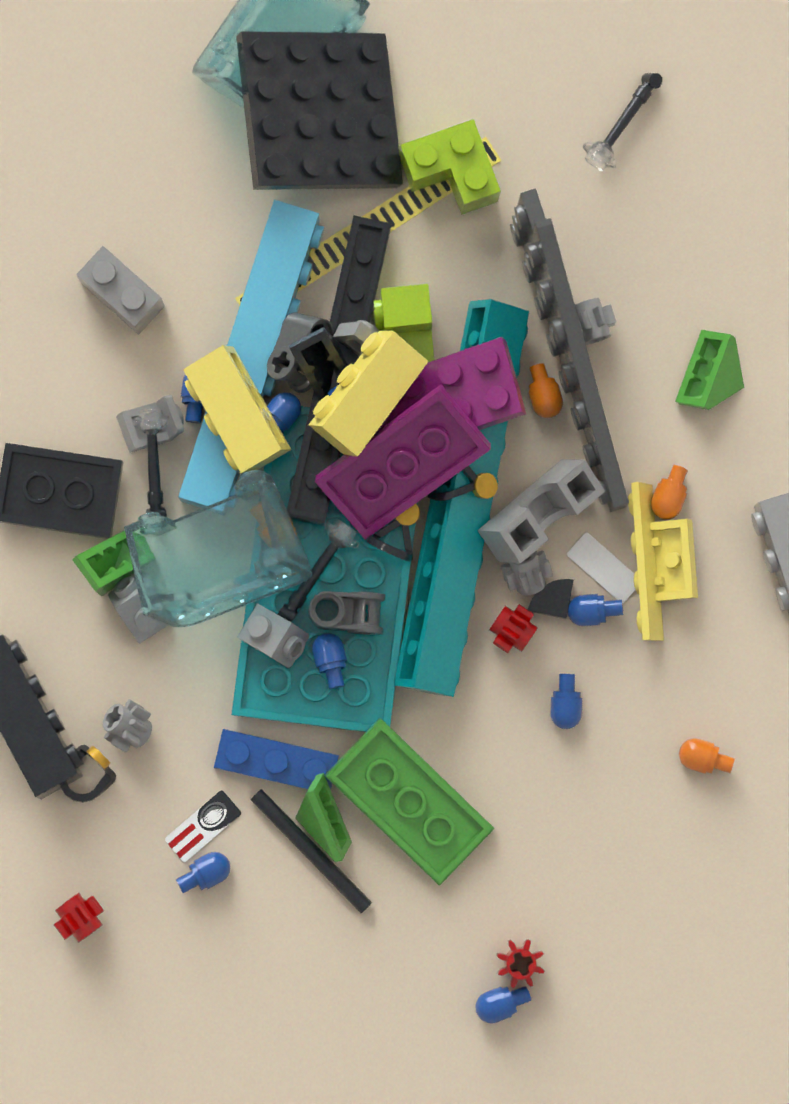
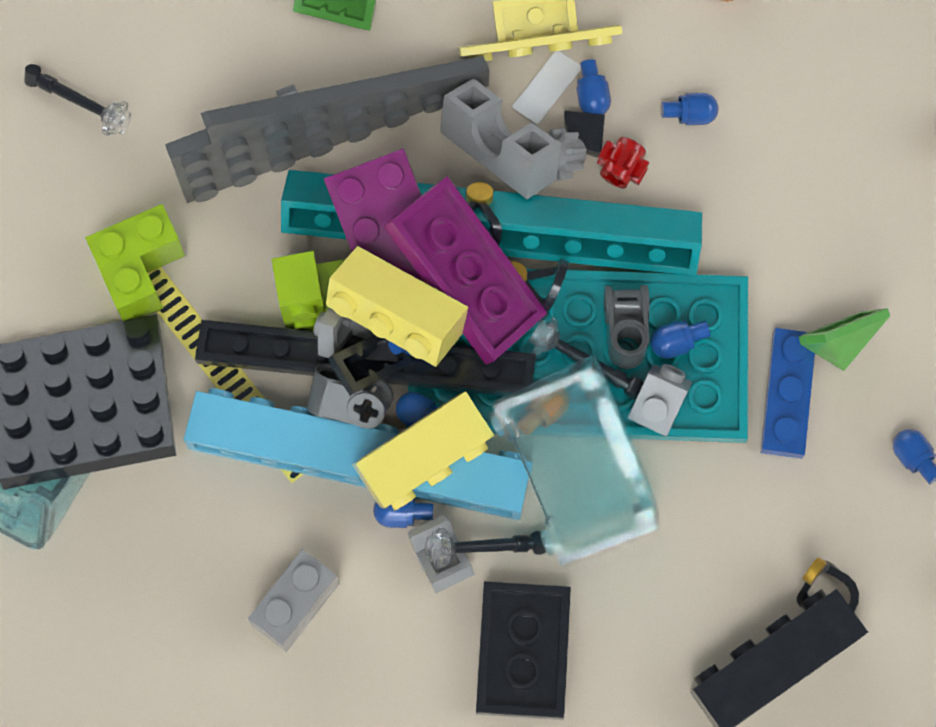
camera: 90 degrees left, 10 degrees down
(106, 563) = (598, 582): bright green slope -> none
(127, 725) = (773, 547): light grey gear -> none
(128, 605) = (641, 554): light grey bracket -> none
(203, 826) = (866, 464): sticker -> none
(311, 851) = (877, 350): black bar -> none
(409, 801) = (813, 252): bright green tile -> none
(544, 393) = (369, 150): orange cylinder -> none
(670, 494) = (467, 25): orange cylinder -> none

